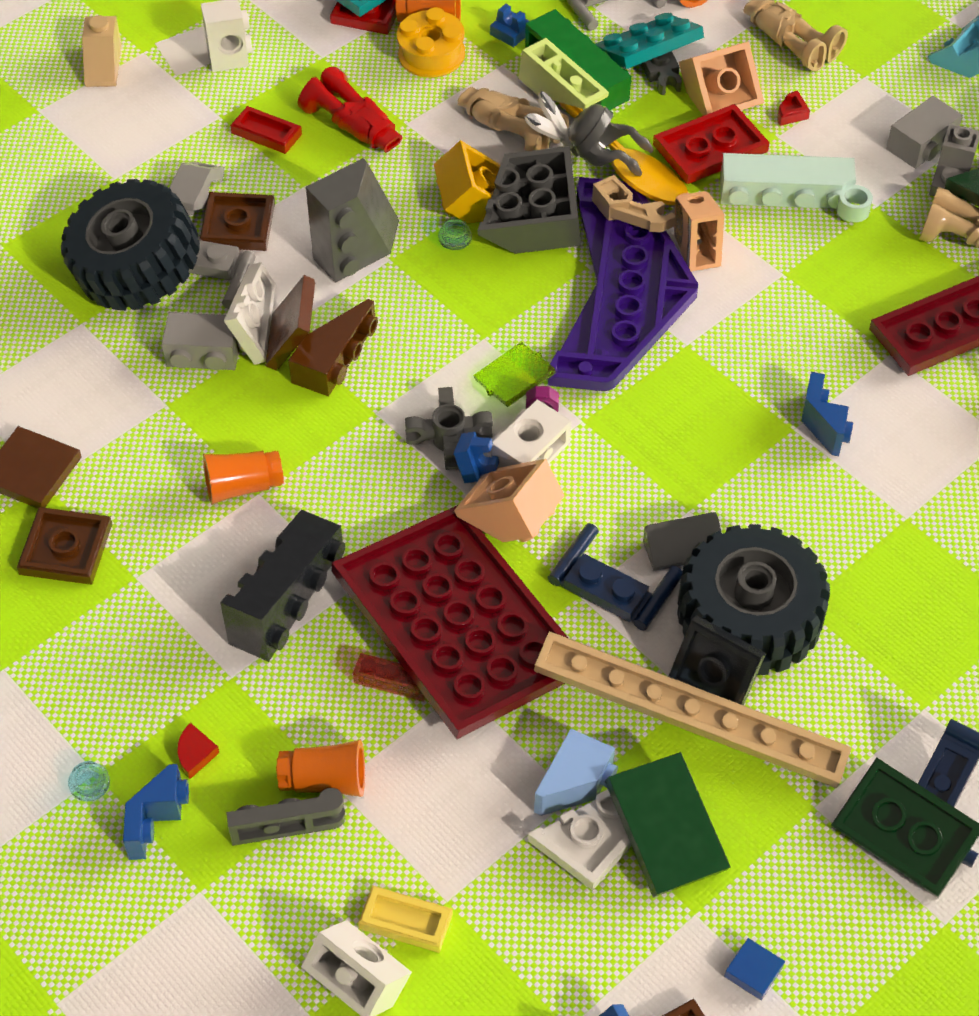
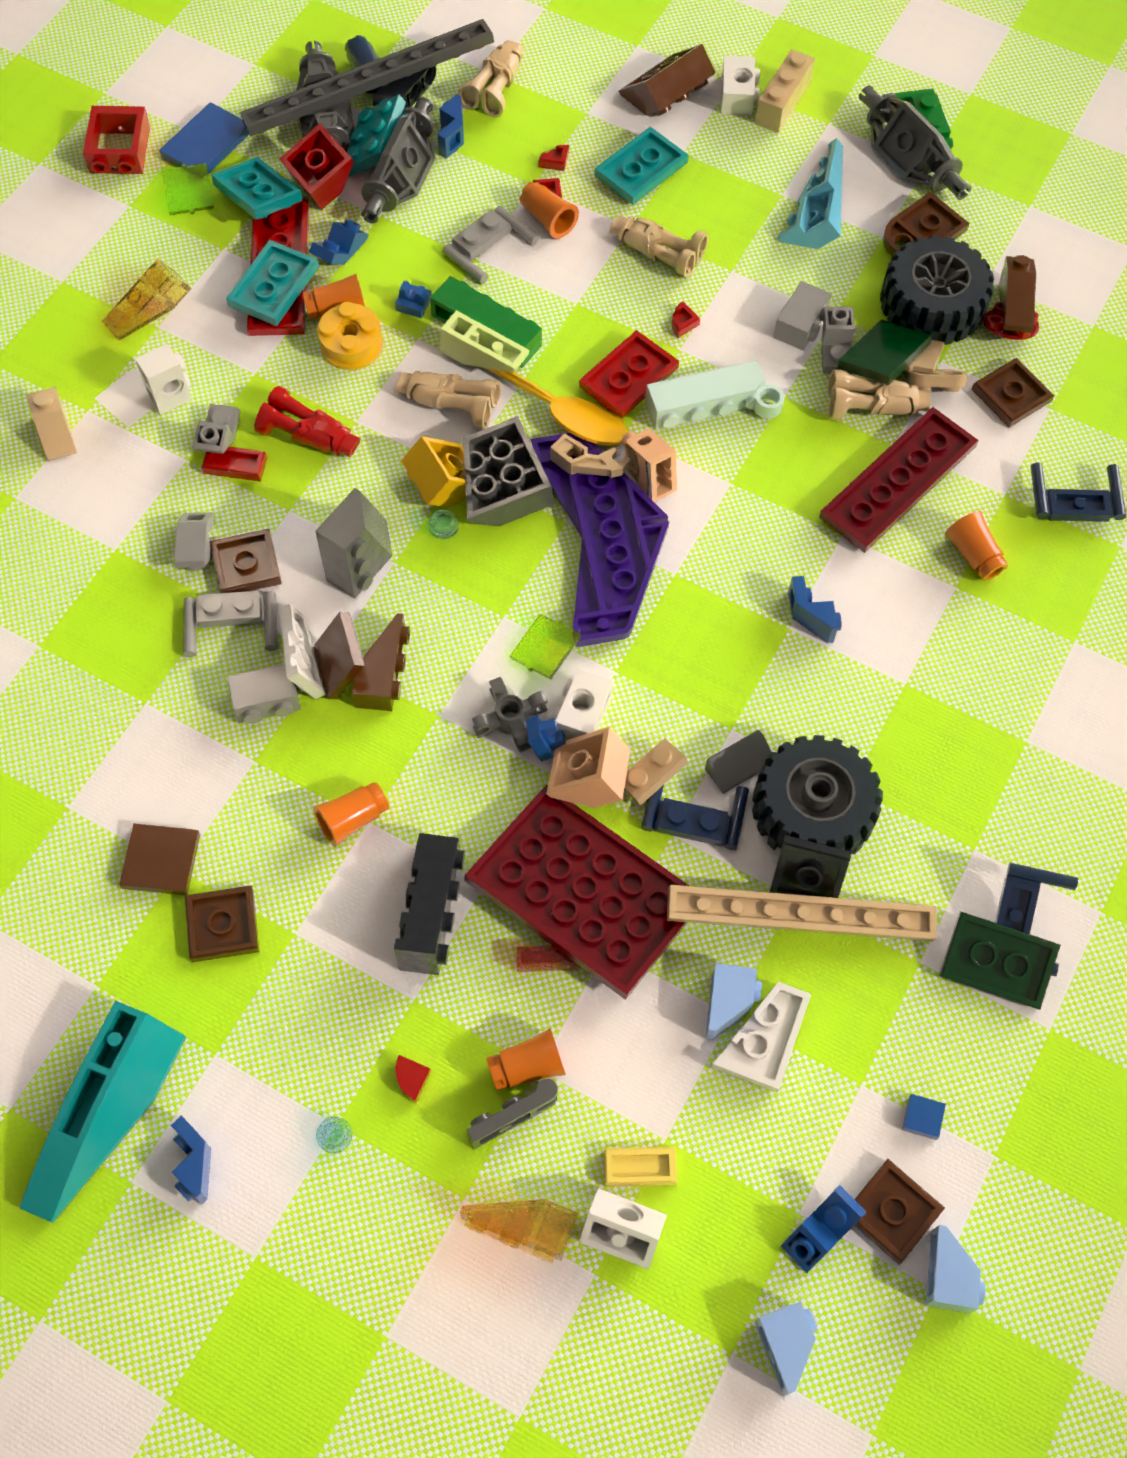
camera: 20 degrees left, 10 degrees up
(130, 244) = (166, 620): black wheel -> none
(154, 802) = (401, 1134): blue slope -> none
(257, 932) = (530, 1222): none -> clear yellow slope
(262, 95) = (218, 430): none -> light grey slope
(544, 394) = (578, 661): magenta tile -> none
(581, 523) = (653, 771): none -> tan plate
(587, 133) = (525, 396): dark grey hair -> none
(650, 39) = (541, 284): teal plate -> none
(665, 71) = (559, 306): dark grey plate -> none
(667, 824) = (818, 1020): dark green tile -> none
(722, 79) = (617, 308): light nougat slope -> none

